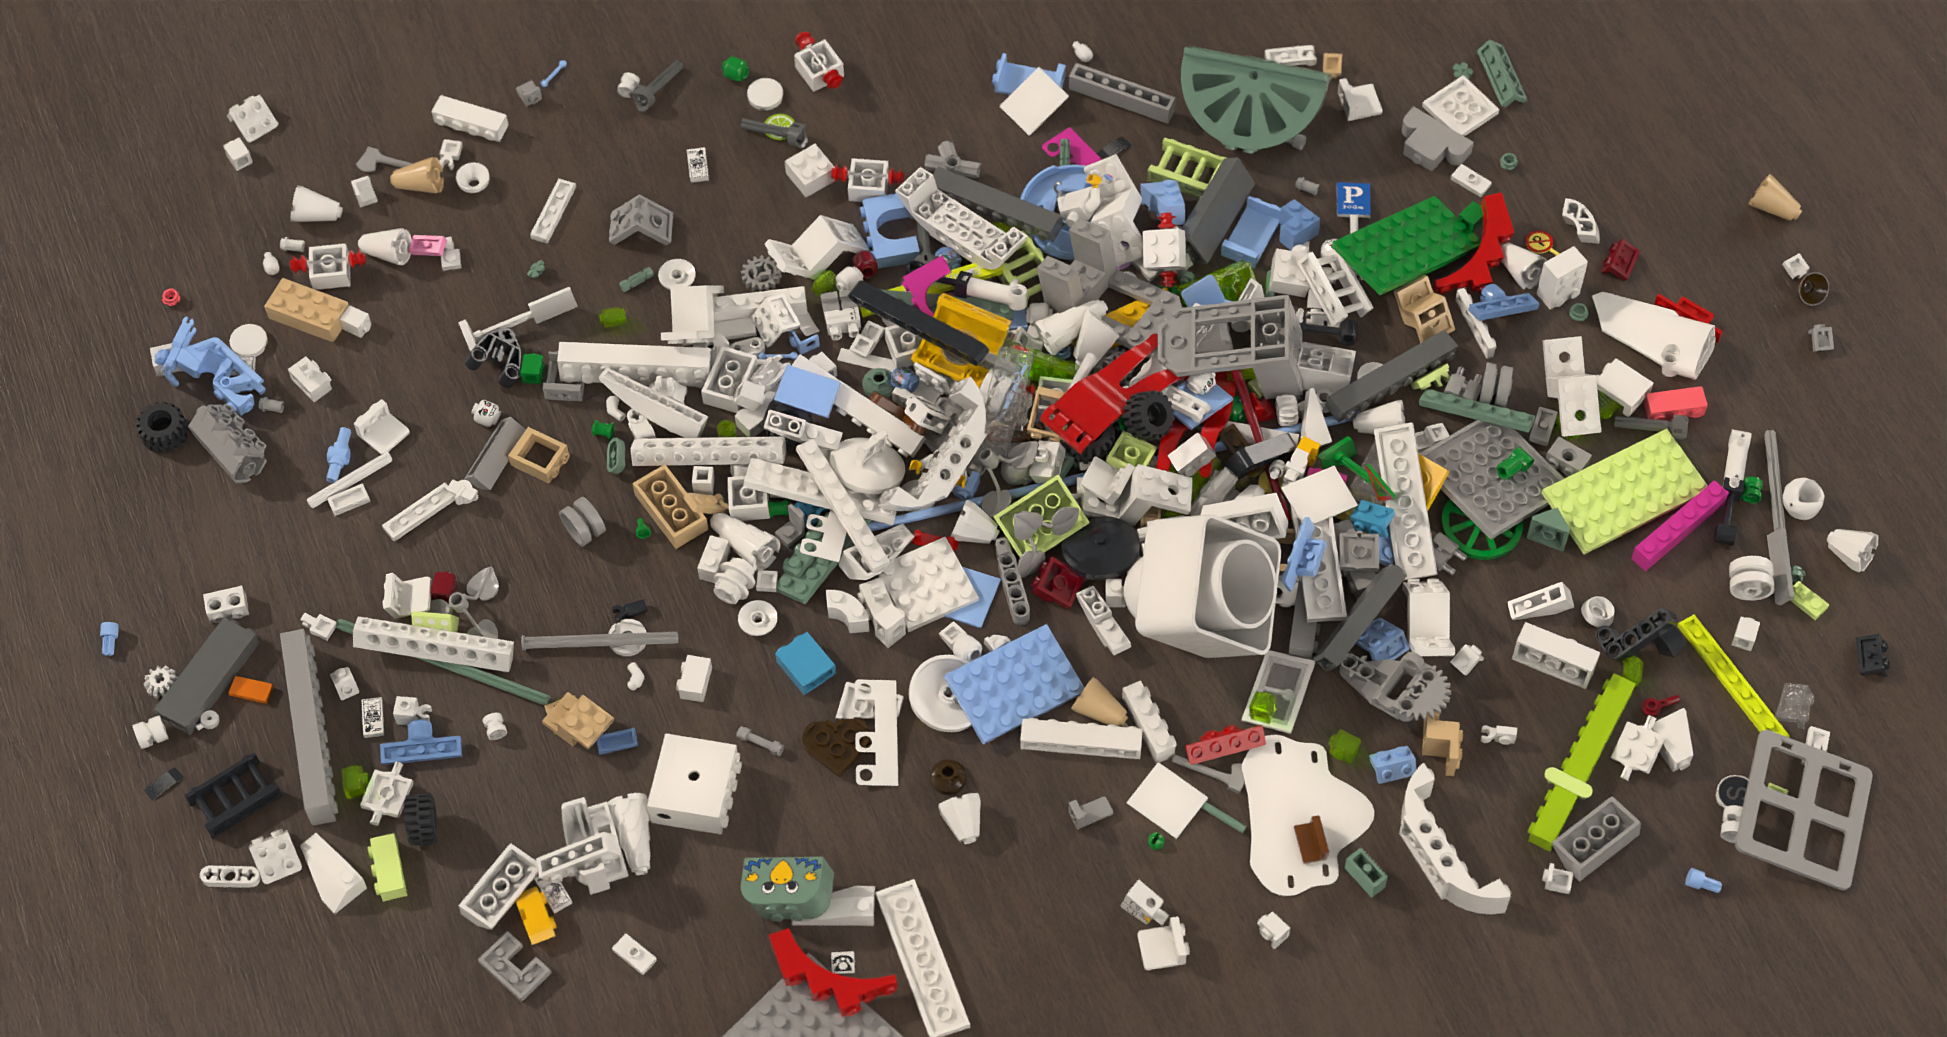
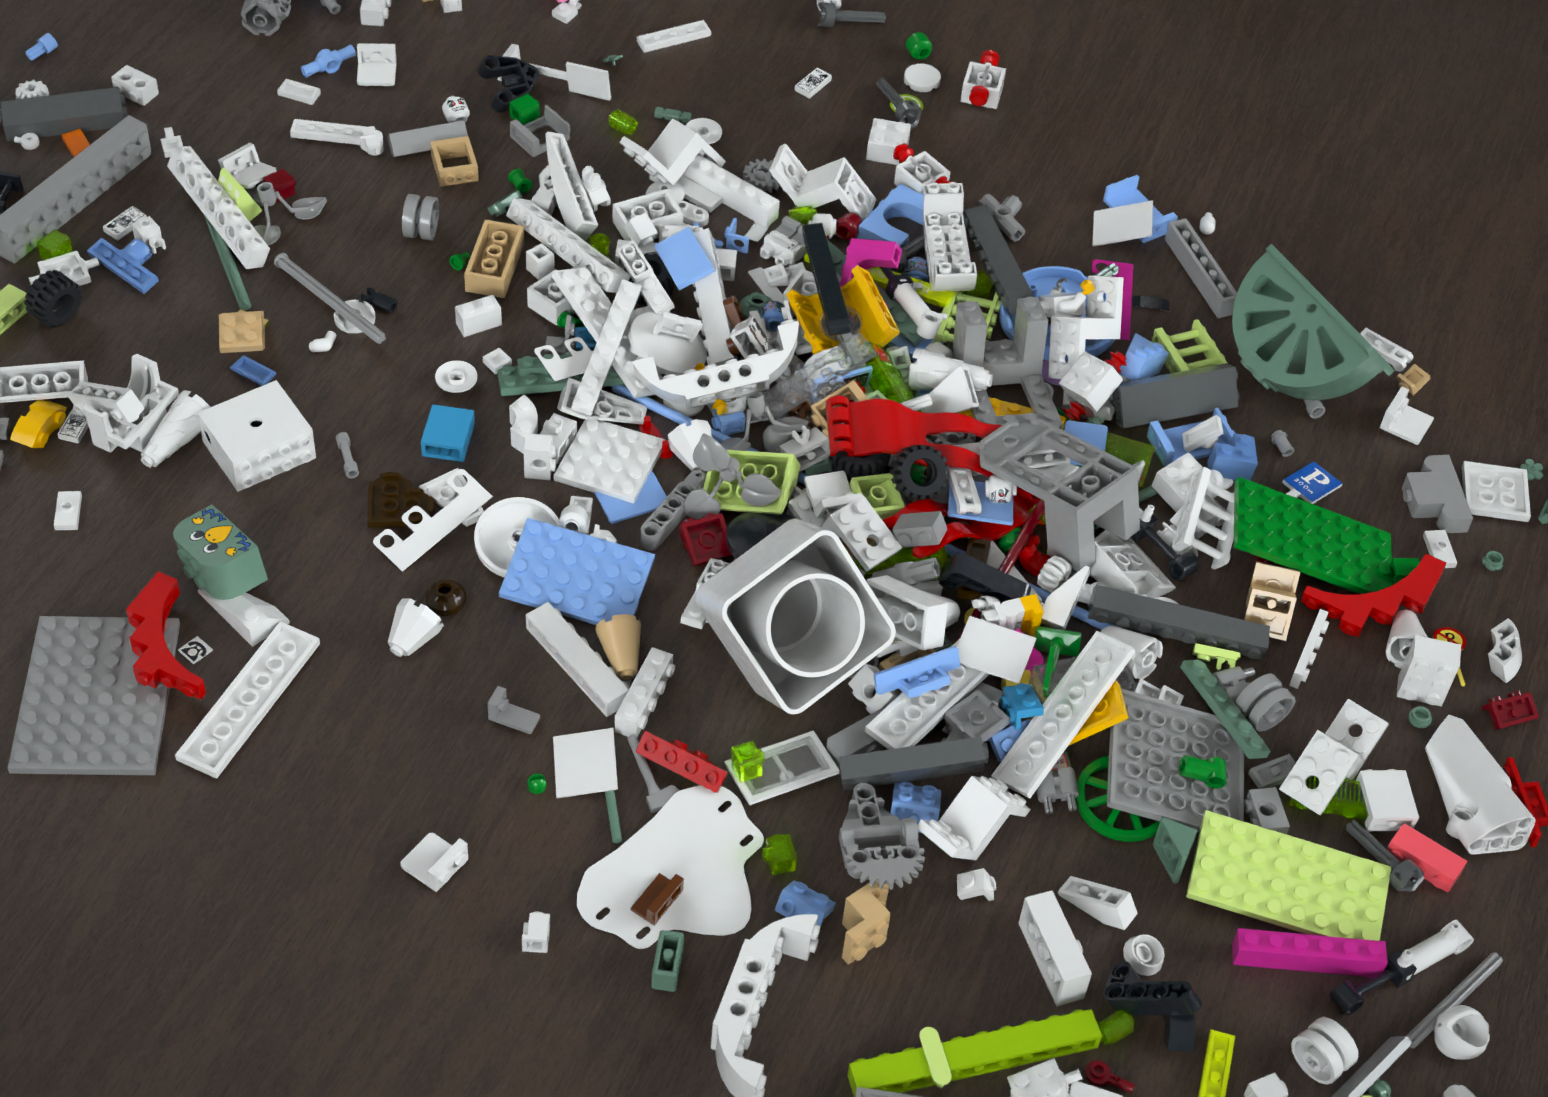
camera: 40 degrees right, 10 degrees down
(344, 683) = (135, 187): white bracket -> none
(349, 479) = (317, 81): white axle -> none
(493, 723) = (188, 291): white wheel -> none
(638, 362) = (589, 148): white brick -> none
(639, 216) = (719, 75): light grey bracket -> none
(694, 678) = (359, 376): white brick -> none
(706, 503) = (515, 271): tan plate -> none
(734, 580) = (470, 336): white piece -> none
(746, 540) = (516, 328): white cone -> none
(774, 318) = (731, 201): white bracket -> none
(1144, 904) = (459, 811): white torso -> none
(1261, 224) = (1203, 434): none -> white tile
(1498, 304) = (1349, 648): medium blue plate -> none
(1501, 734) = (929, 967): white plate -> none
(1752, 489) = (1420, 985): green wheel -> none

